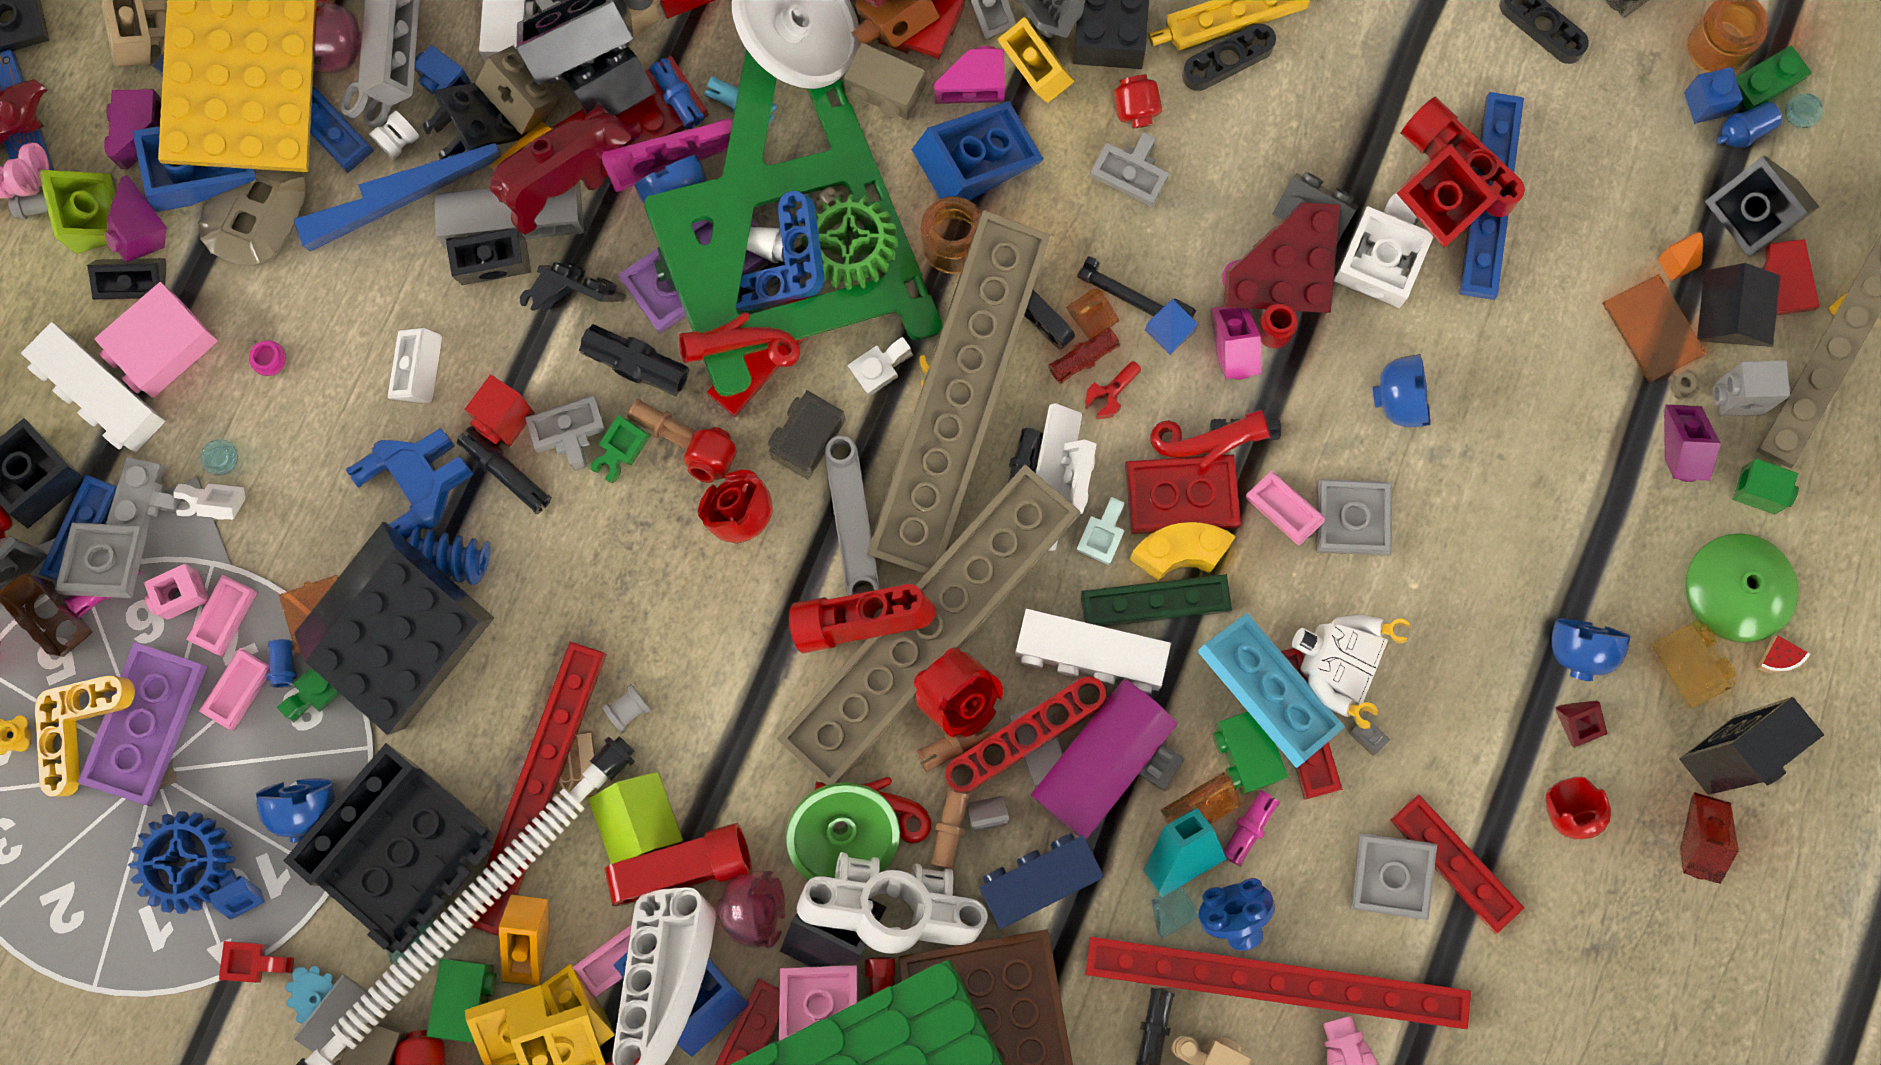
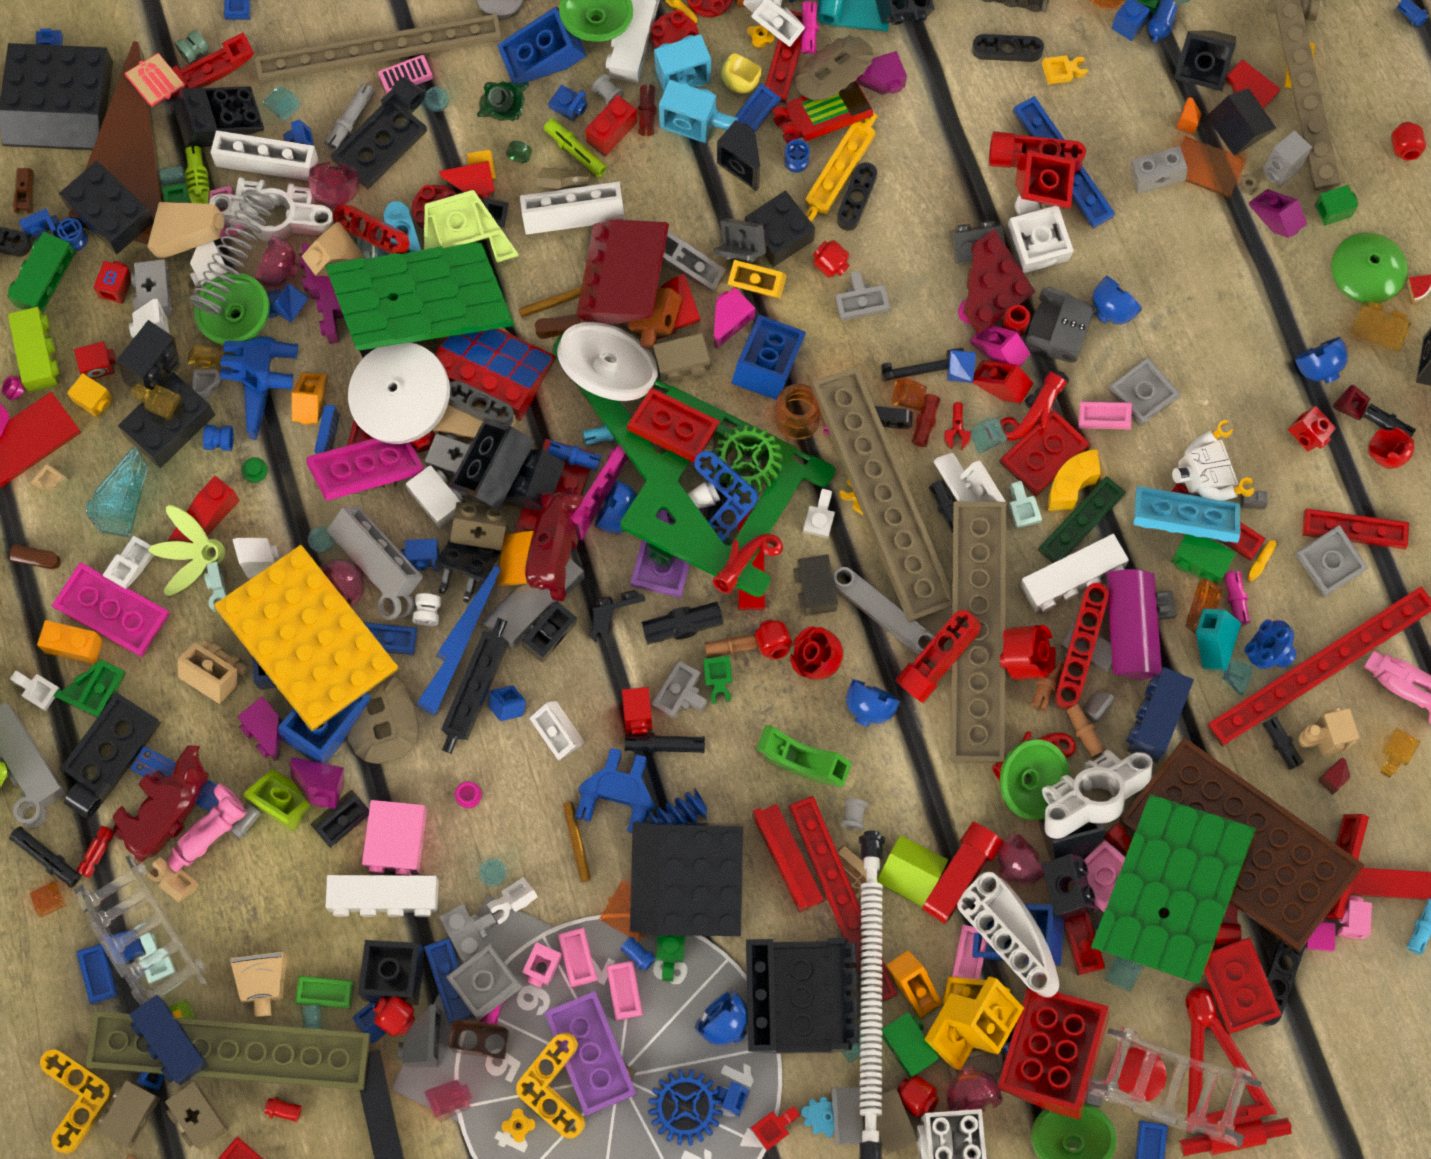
camera: 45 degrees left, 5 degrees down
(328, 498) = (576, 841): none -> pearl gold bar
(367, 251) = (475, 685): none -> black plate
(388, 296) = (506, 703): none -> blue slope
(517, 694) = (787, 857): none -> red fence
(622, 602) = (803, 760): none -> bright green arch
(746, 606) = (870, 703): none -> blue cylinder
(749, 990) = (1058, 875): none -> black brick
(804, 142) = (673, 425): none -> red plate
(1137, 424) = (988, 434): none -> clear light blue slope
(1204, 379) = (1002, 380): none -> red slope
(1310, 811) = (1258, 565): none -> yellow piece
(1321, 370) = (1059, 326): none -> dark grey piece
(1504, 713) = (1312, 429): none -> red brick
(1580, 92) = (1060, 70): none -> yellow plate
(1591, 286) = (1158, 169): none -> light grey brick
(1603, 775) = (1386, 420): none -> black pin

